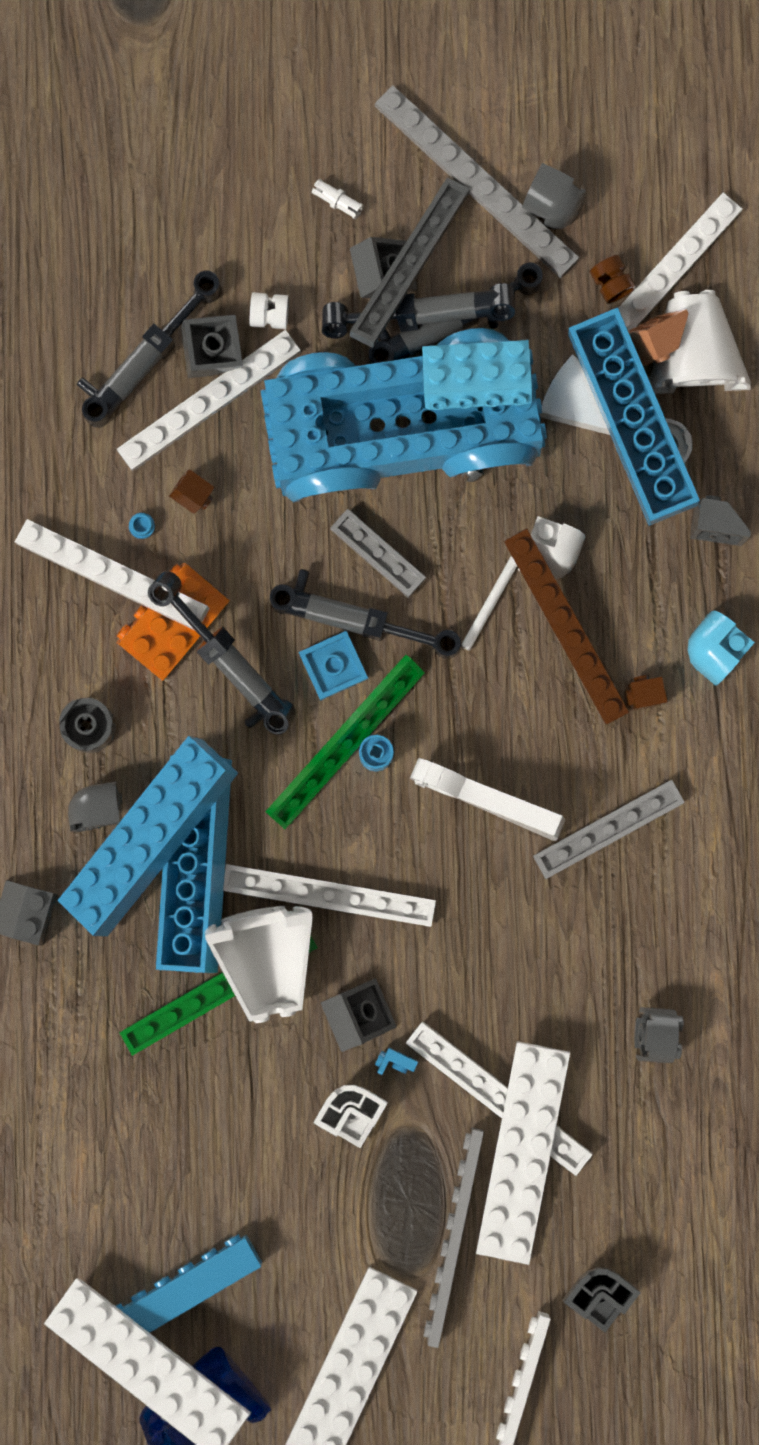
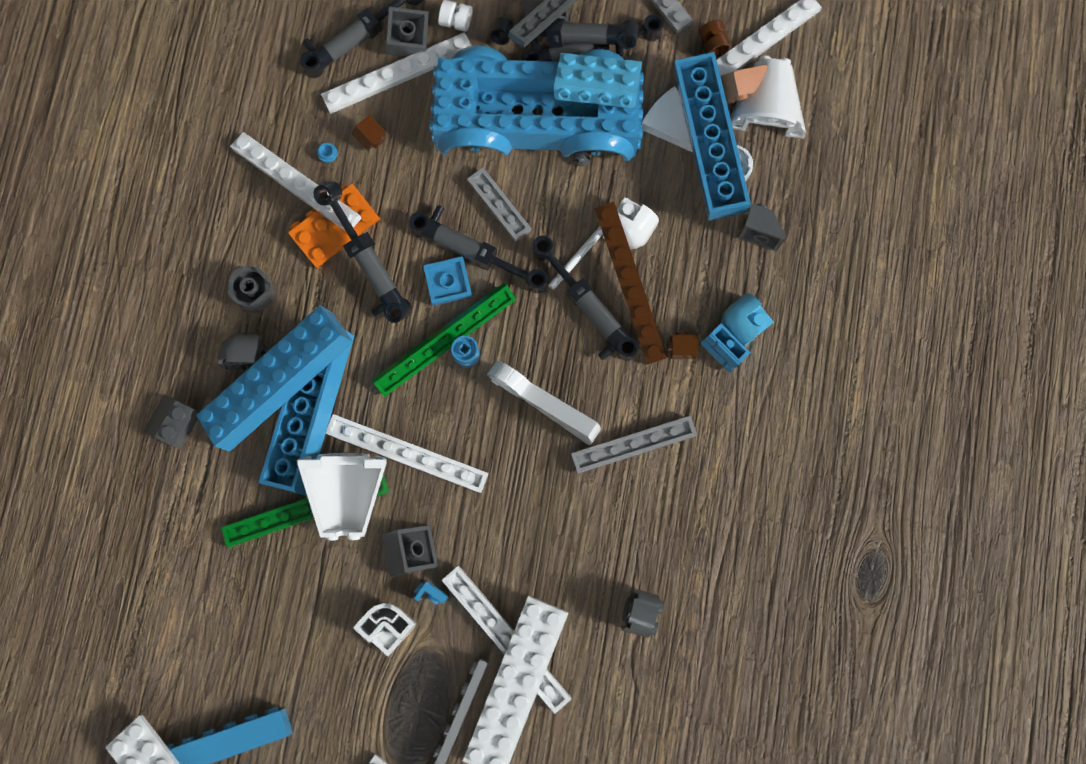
camera: 15 degrees right, 5 degrees down
(522, 664) = (597, 313): none -> black piece
(699, 686) = (725, 347): none -> dark azure brick

